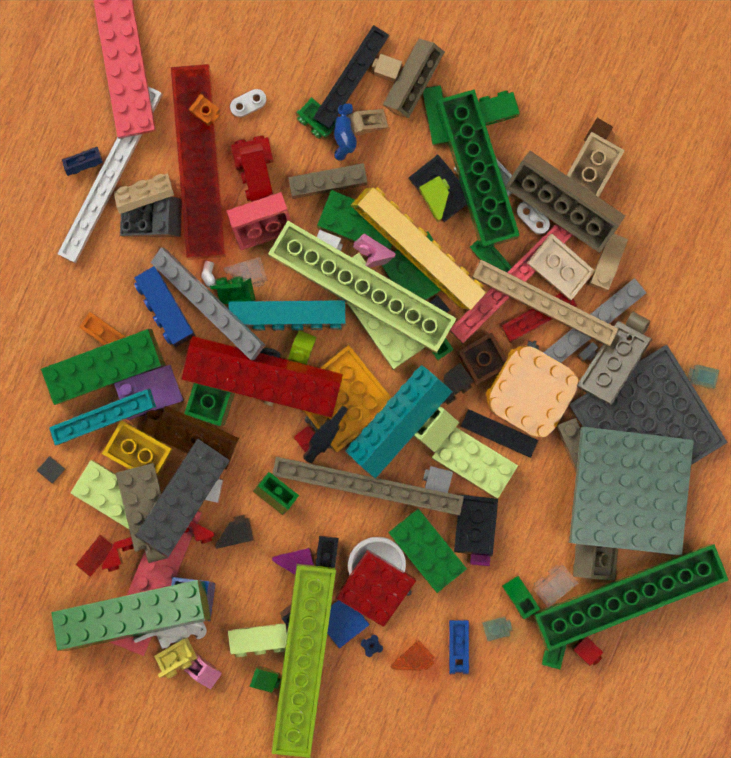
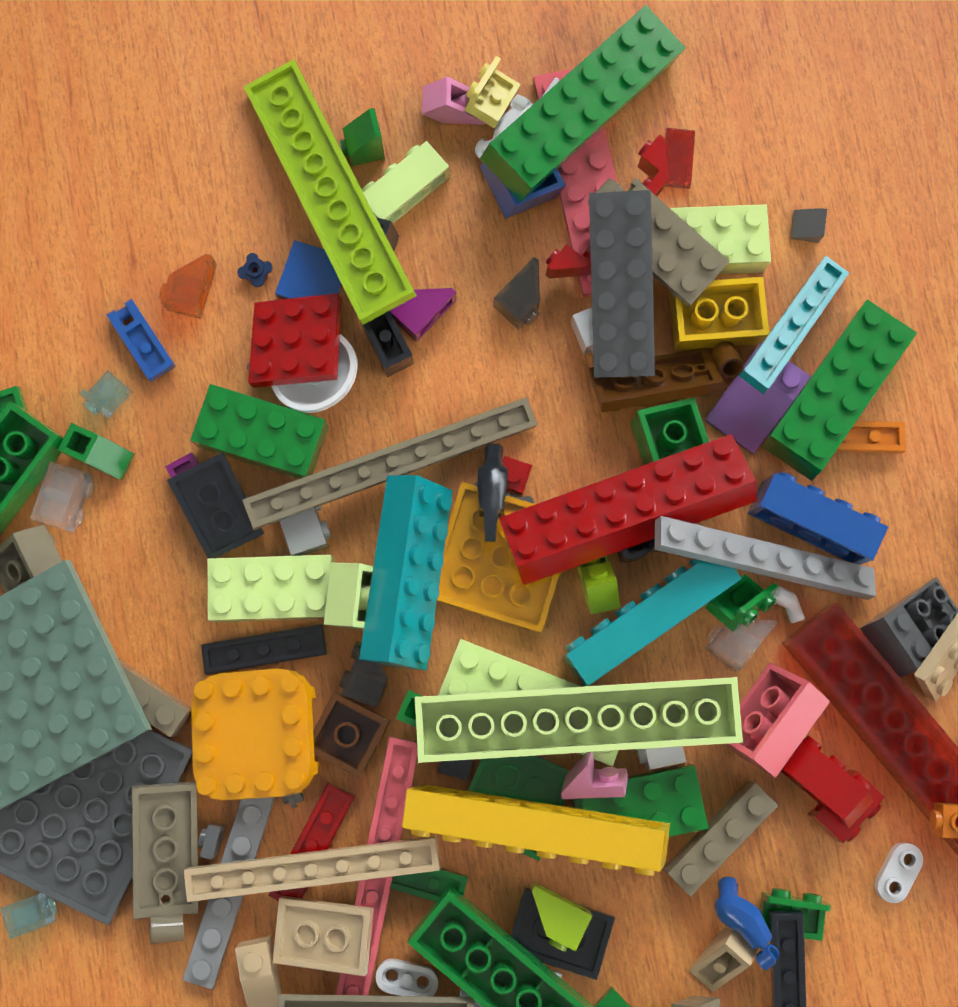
camera: 145 degrees right, 5 degrees down
(276, 493) = (505, 376): green brick -> none

